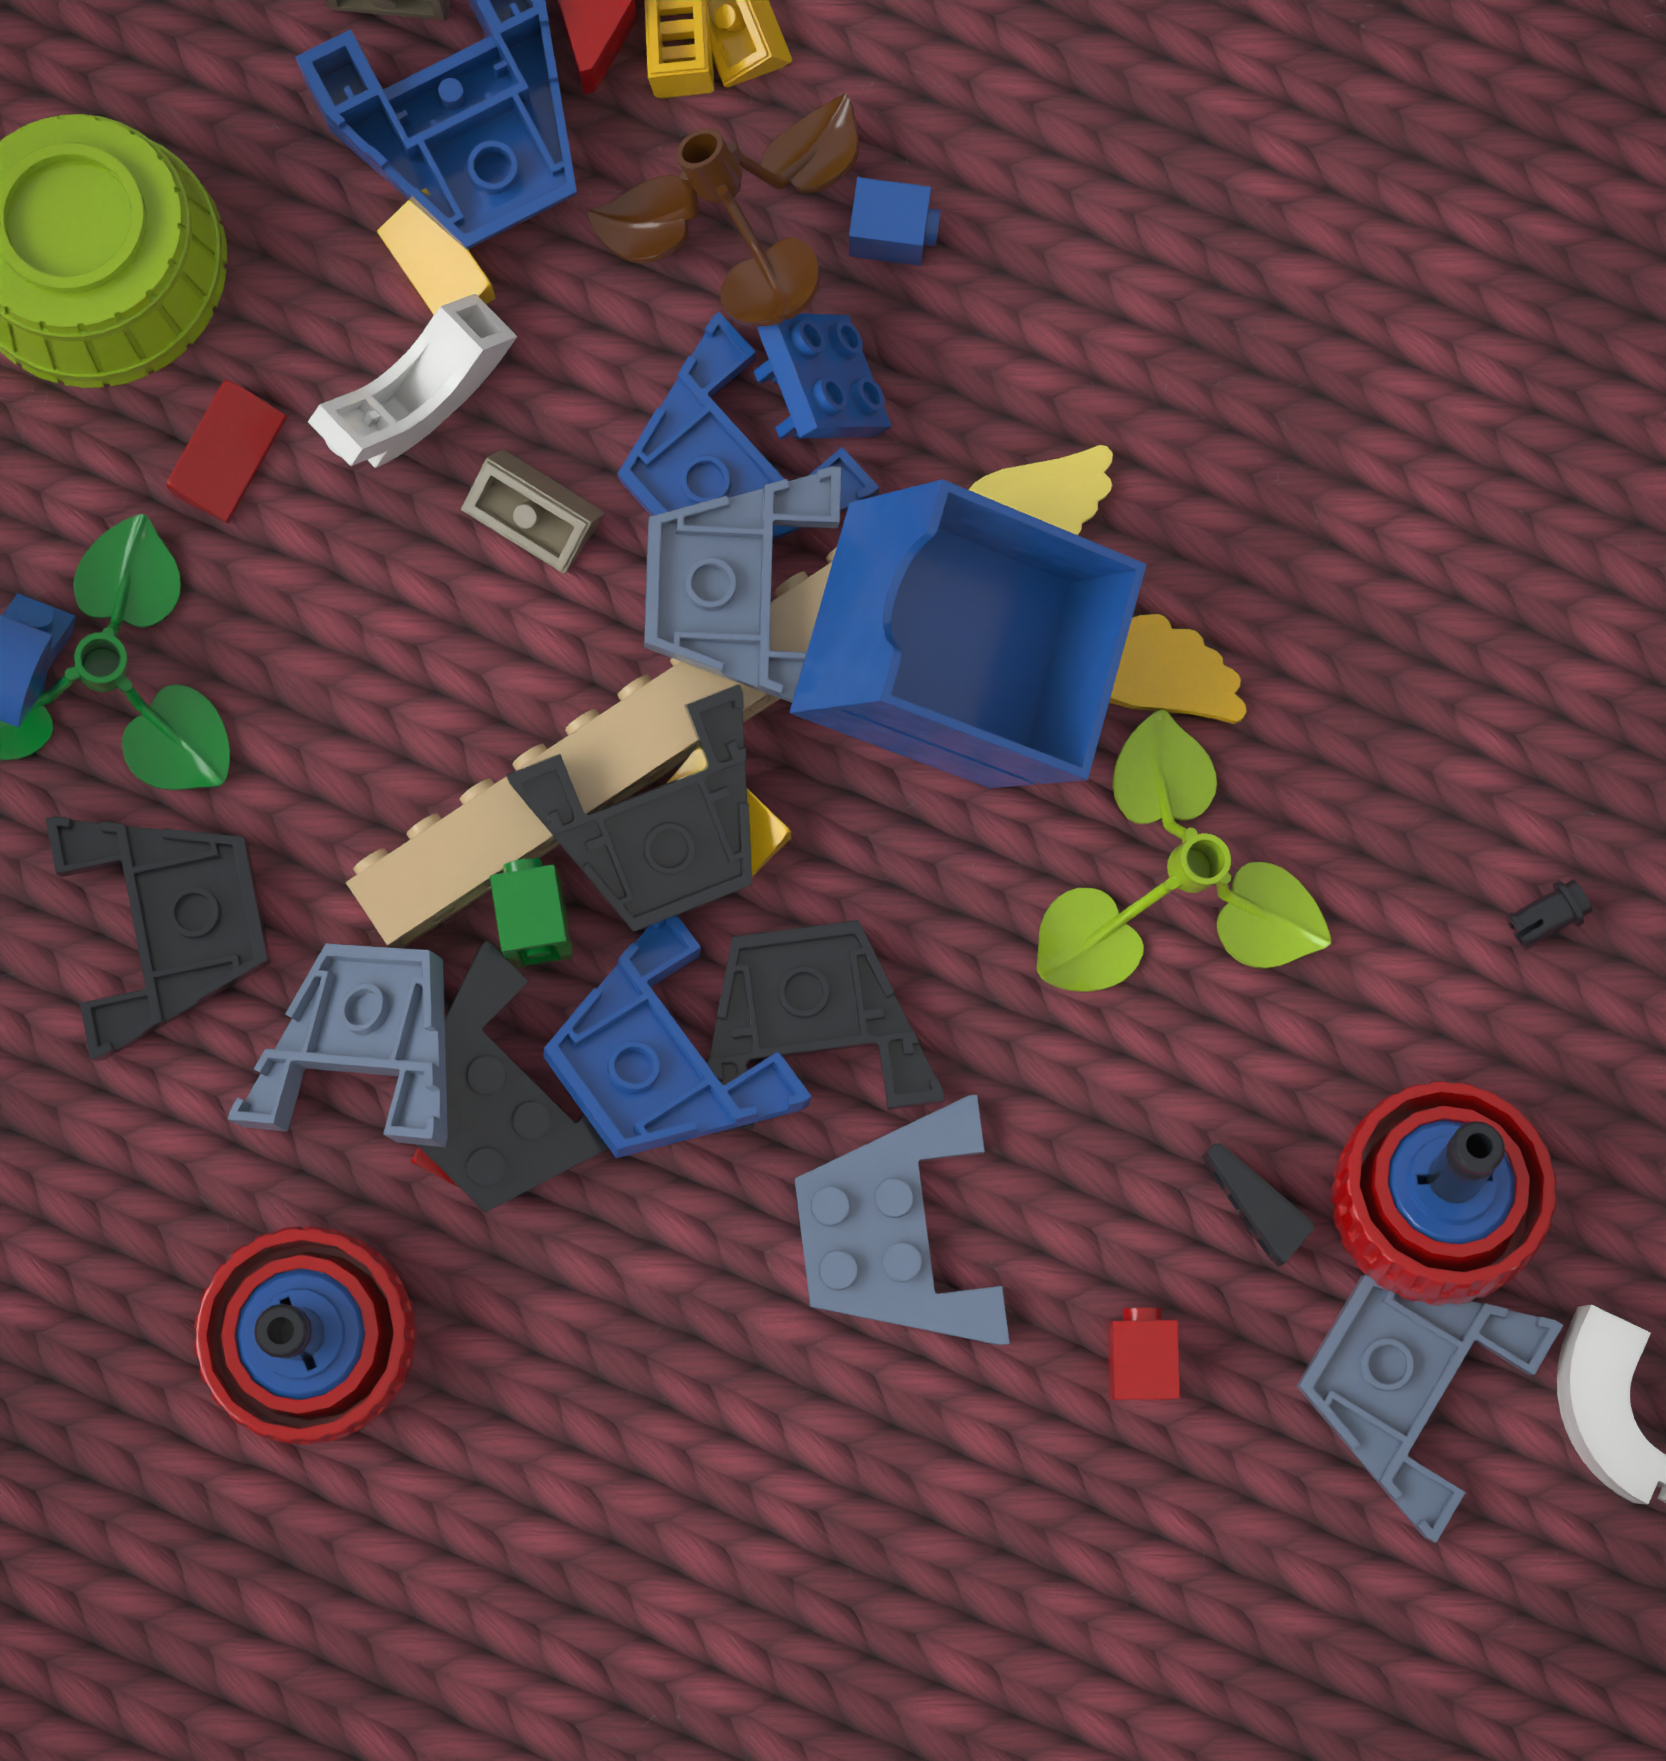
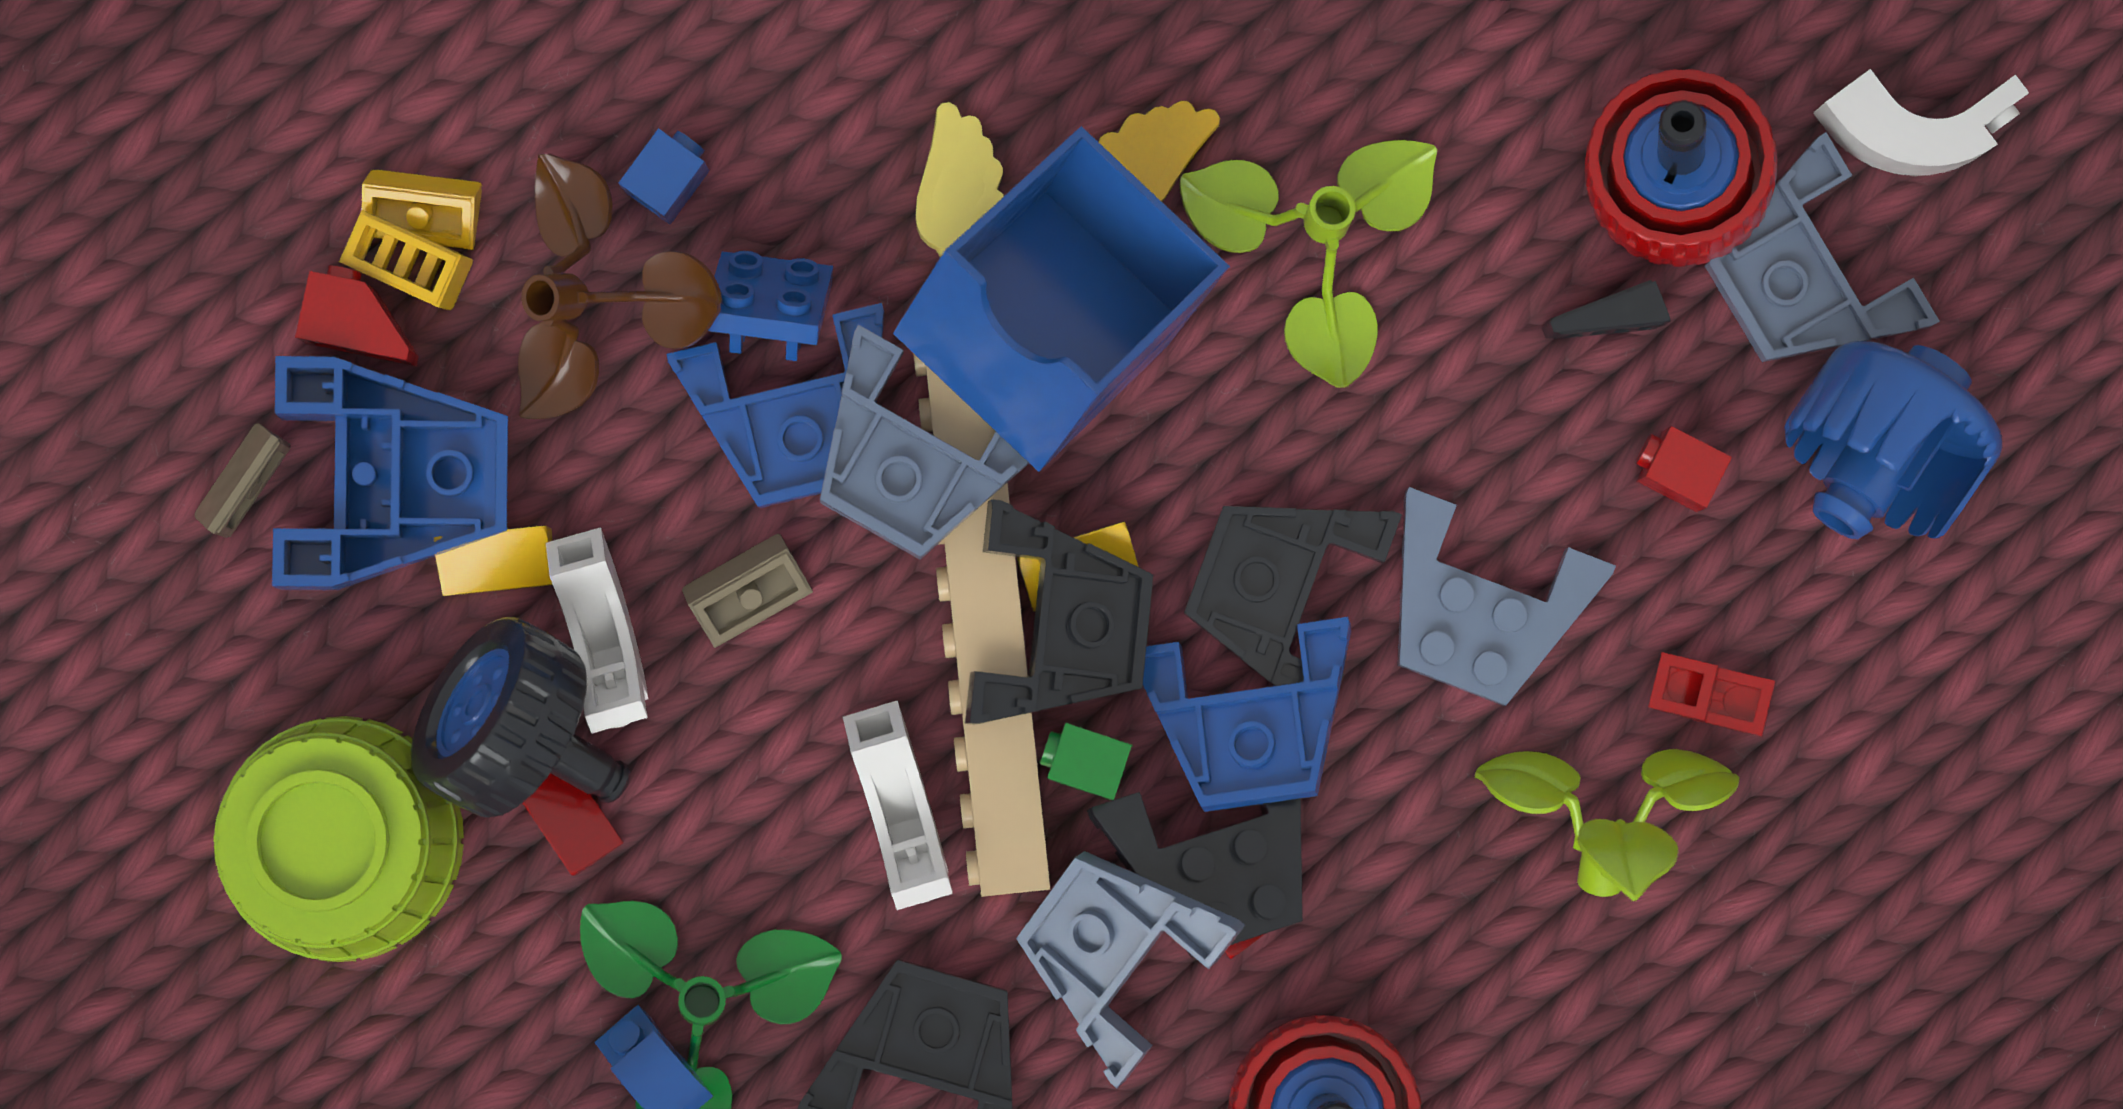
camera: 65 degrees left, 5 degrees up
(277, 336) = (507, 721): none -> black wheel
(398, 759) = (898, 805): none -> white arch
(711, 1483) = (1613, 853): none -> lime plant
(932, 1511) = (1712, 694): none -> red slope
(1290, 1549) = (1895, 435): none -> blue piece

